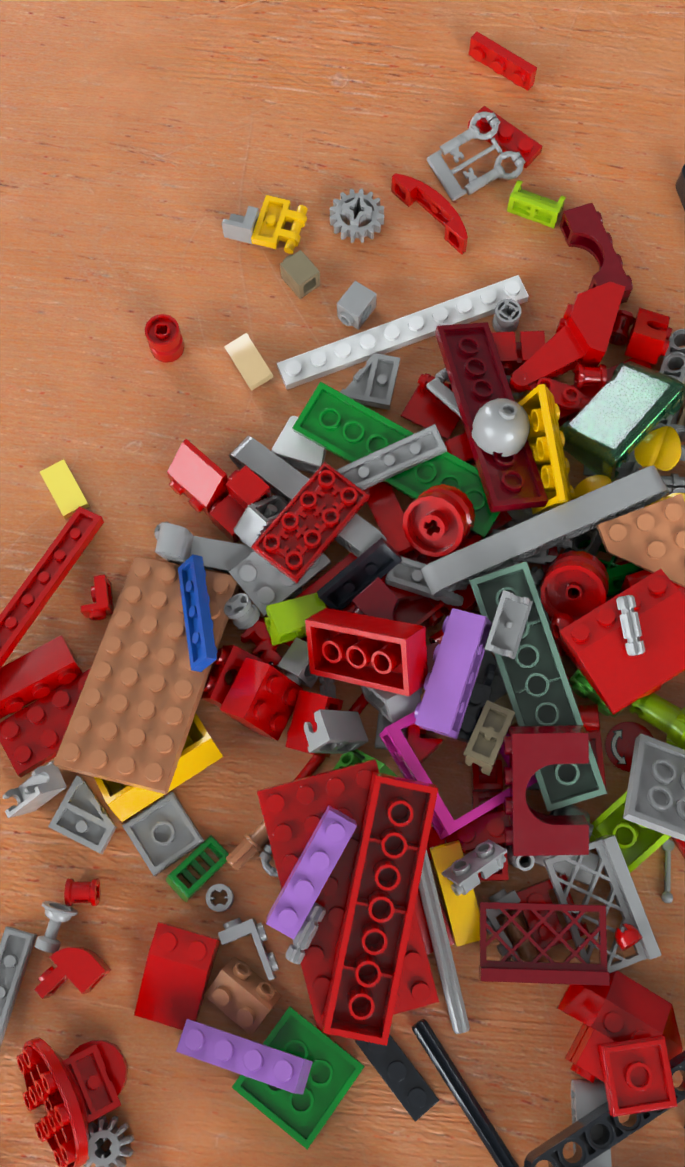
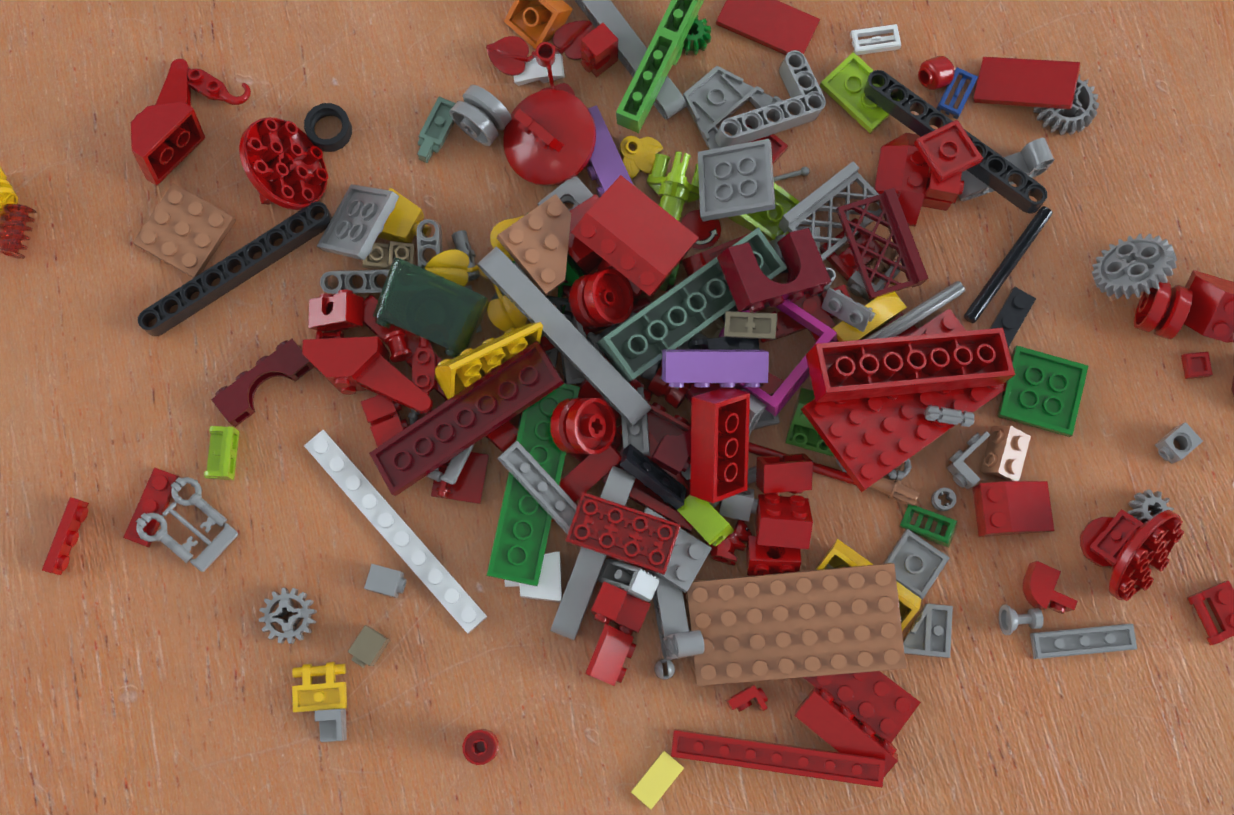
camera: 115 degrees left, 5 degrees up
(36, 791) = (928, 678): light grey hinge -> none
(82, 892) = (986, 608): red bush -> none
(197, 613) = (737, 599): blue plate -> none
(241, 611) = (711, 571): light grey wheel -> none
(244, 1056) = (1051, 431): medium lavender brick -> none
(249, 361) = (475, 659): tan slope -> none
(311, 872) = (908, 423): medium lavender brick -> none
(336, 732) = (788, 450): light grey hinge -> none
(375, 382) = (456, 537): light grey wing -> none
(413, 190) = (243, 575): red slope -> none
(501, 427) = (483, 400): light grey cylinder -> none
(502, 320) = (356, 443): light grey wheel -> none
(508, 625) = (661, 336): light grey hinge -> none
(562, 620) = (637, 299): red hinge -> none
(628, 938) = (852, 186): red hinge -> none
(630, 625) = (630, 240): light grey axle -> none

